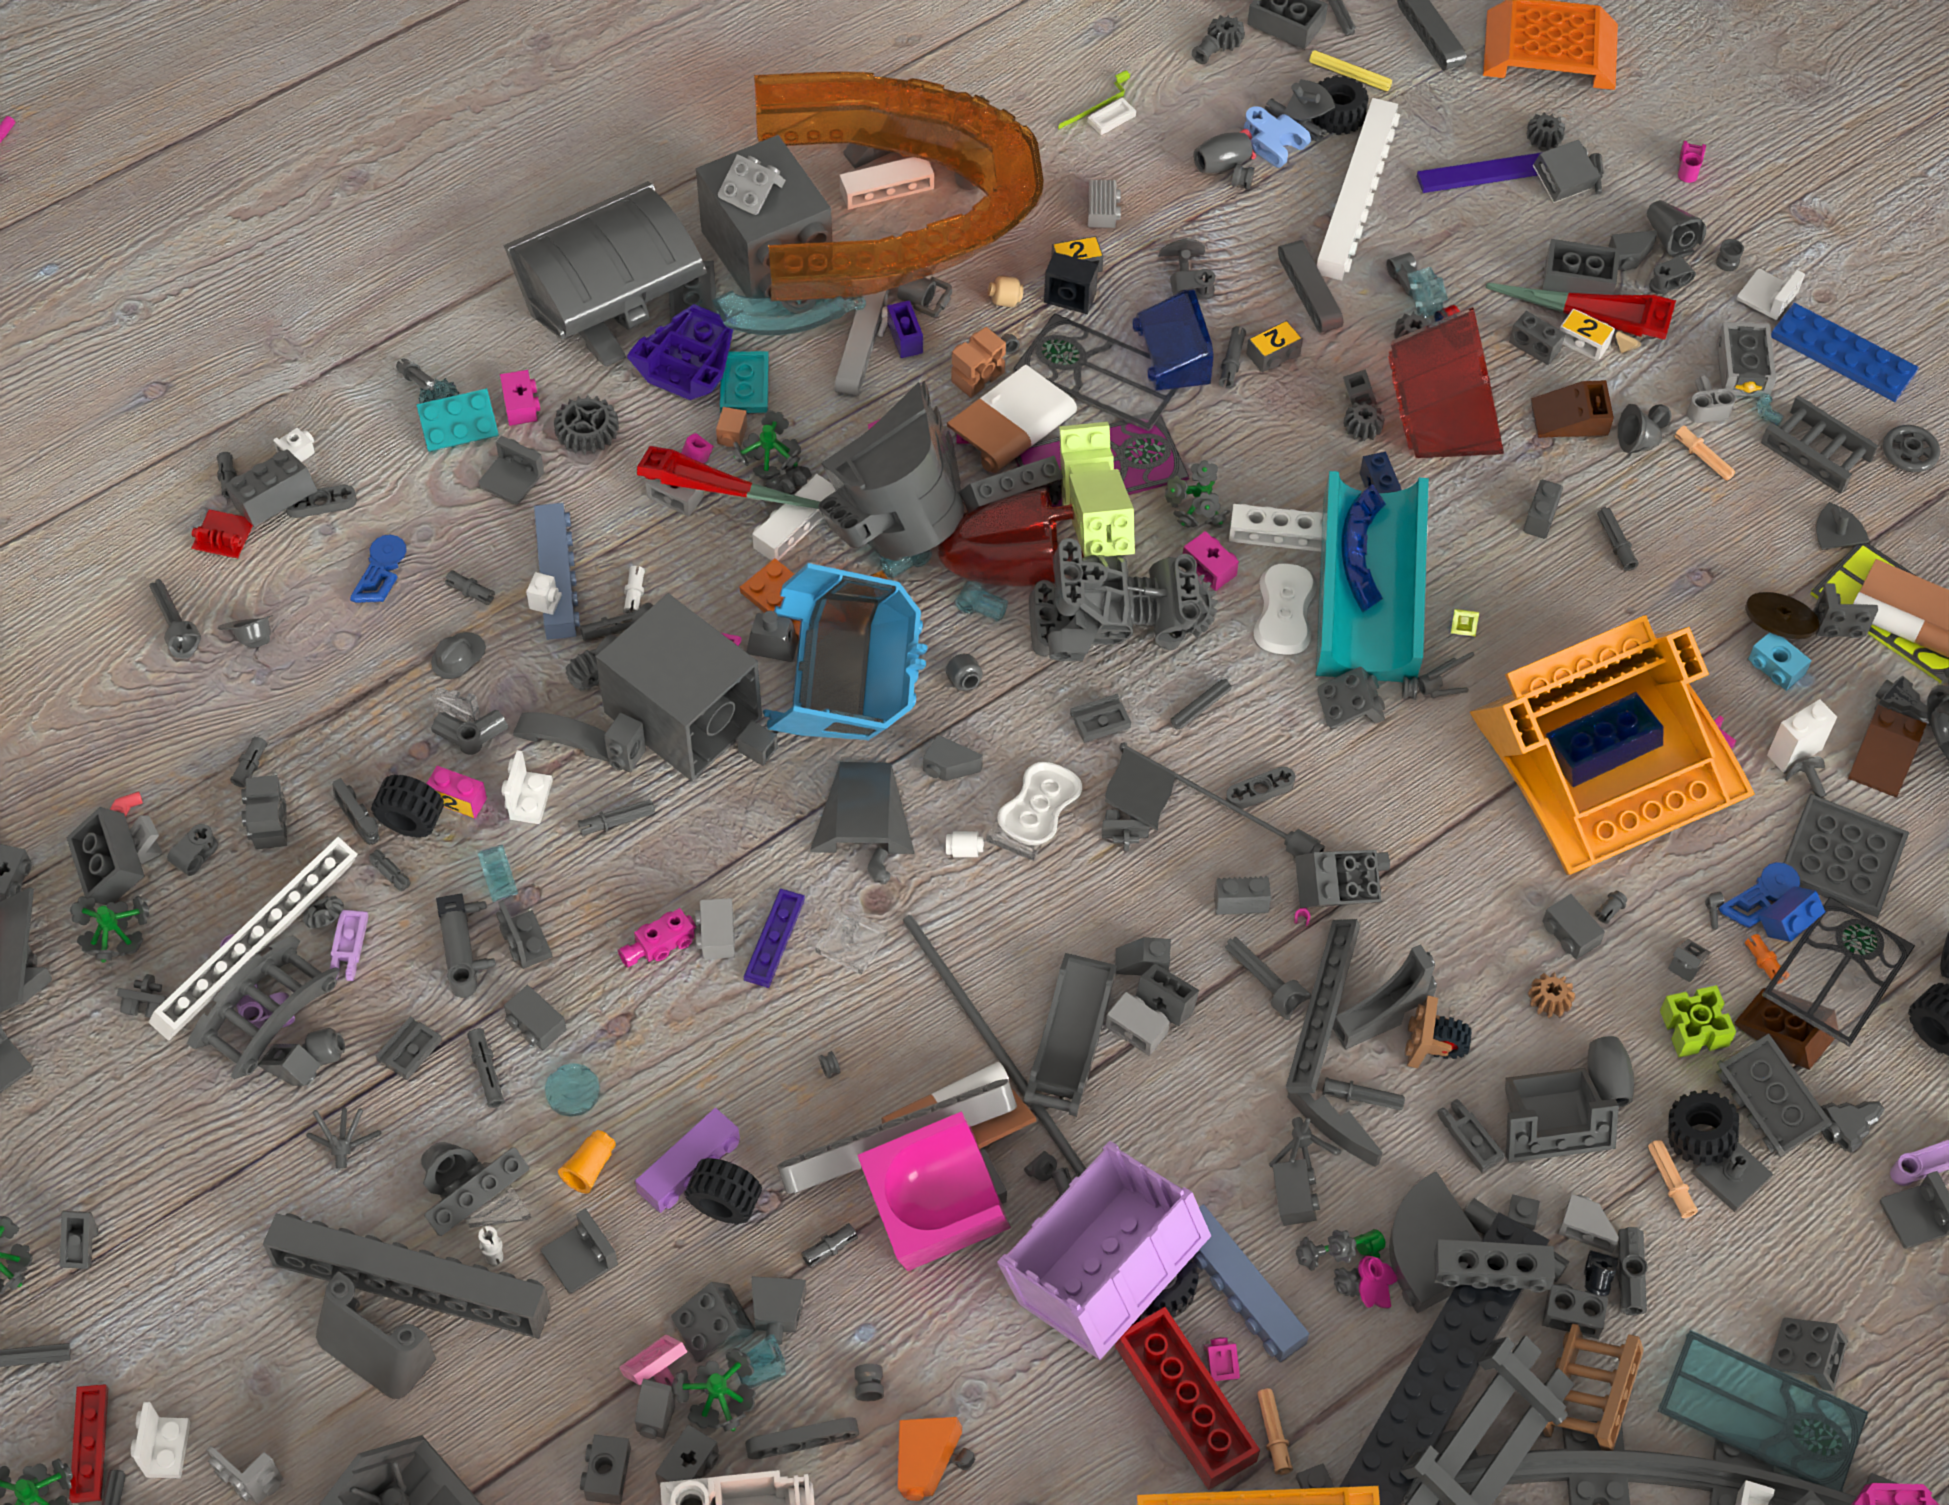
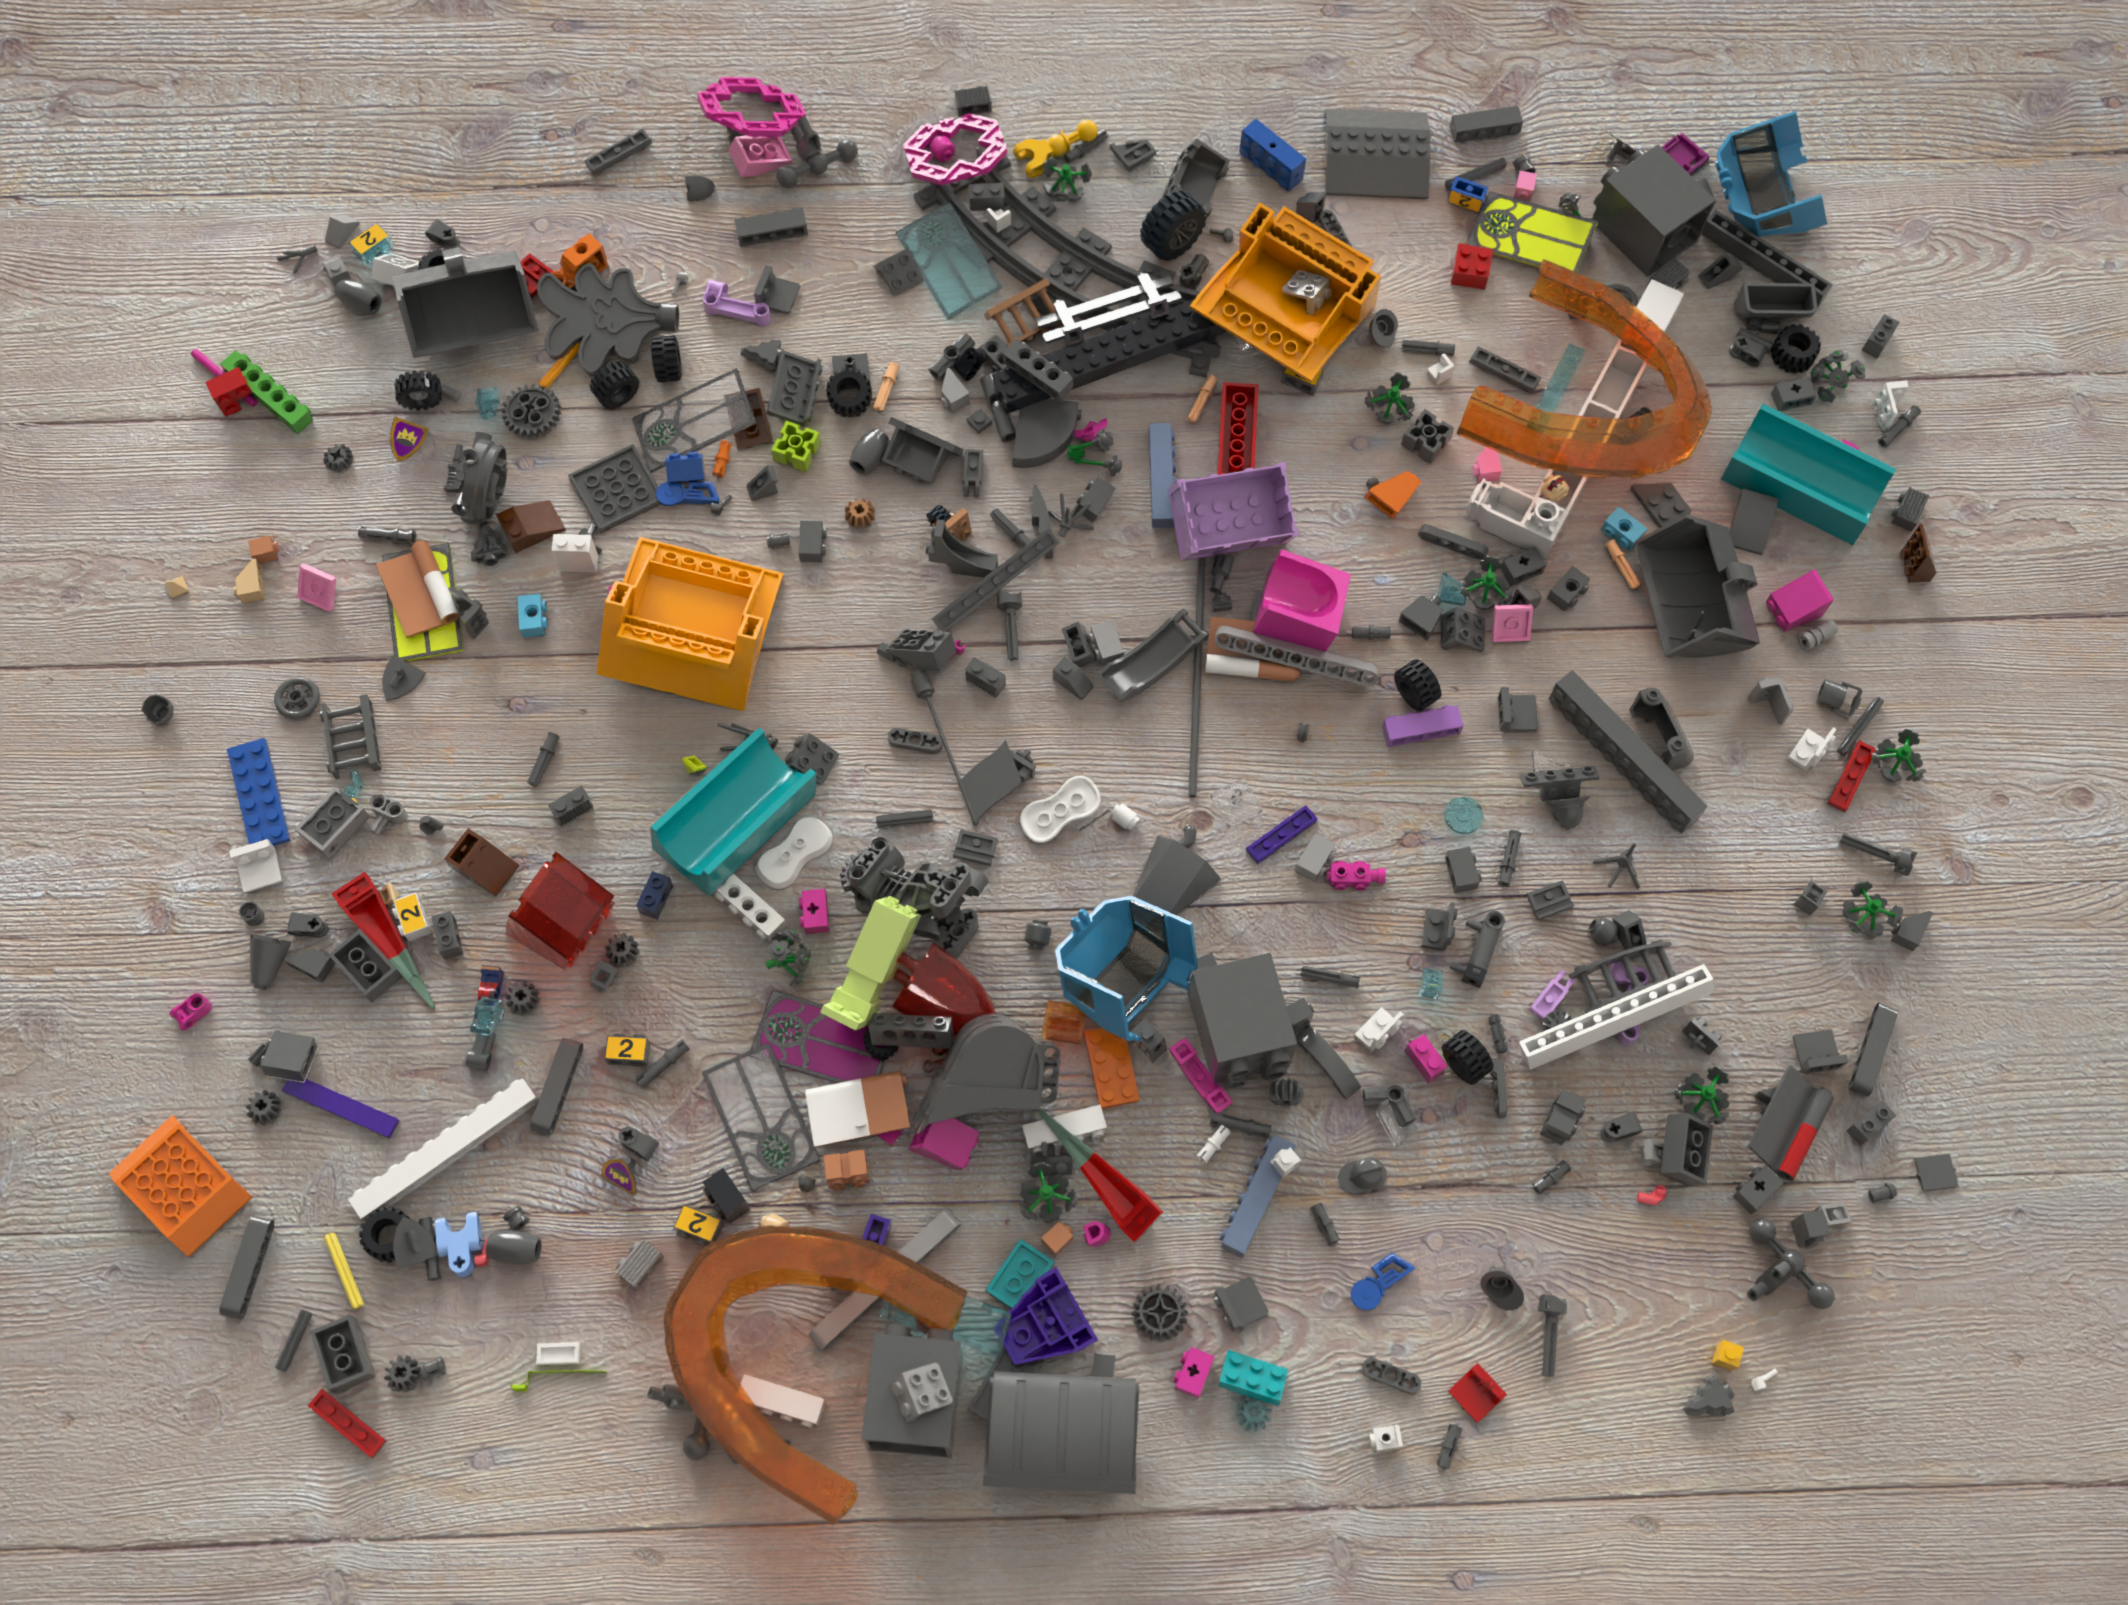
camera: 145 degrees left, 10 degrees up
(270, 487) = (1426, 1400): dark grey brick -> none
(413, 373) = (1261, 1447): dark grey axle -> none
(491, 1245) = (1568, 739): white pin -> none
(587, 1162) = (1482, 759): light orange plant -> none
(869, 1383) = (1398, 548): dark grey wheel -> none
(950, 760) = (1093, 878): dark grey slope -> none
(975, 598) = (987, 978): clear light blue piece -> none
(1176, 342) = (694, 1094): clear blue windscreen -> none
(1222, 1359) = (1200, 447): dark pink bracket -> none
(1355, 547) = (727, 833): clear blue tile -> none
(1605, 739) = (698, 611): clear blue brick -> none
(1637, 430) = (457, 819): dark grey piece -> none
(1697, 446) = (427, 781): light nougat axle -> none
(1782, 615) = (513, 639): dark brown piece -> none

